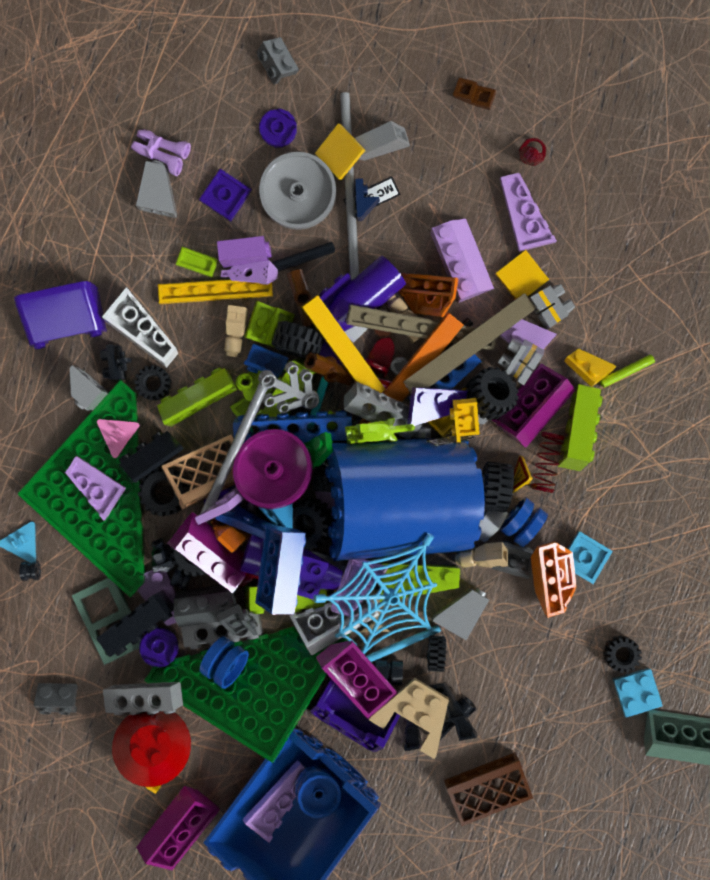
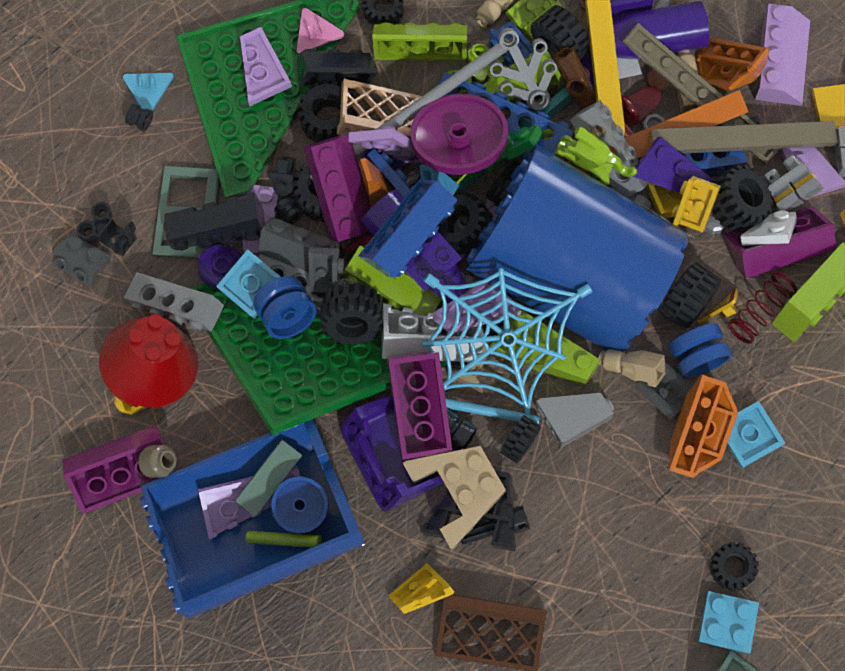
camera: 35 degrees right, 15 degrees down
(59, 667) = (105, 228): none -> black piece
(187, 653) = (245, 280): none -> medium azure plate
(203, 818) = (157, 461): none -> dark tan head
(273, 639) = (352, 314): none -> black tyre
(285, 785) = (268, 478): none -> sand green tile
(309, 821) = (283, 539): none -> lime piece
(428, 792) = (420, 590): none -> yellow wing
(491, 524) = (658, 336): white slope -> none
(528, 404) = (773, 230): none -> white wing

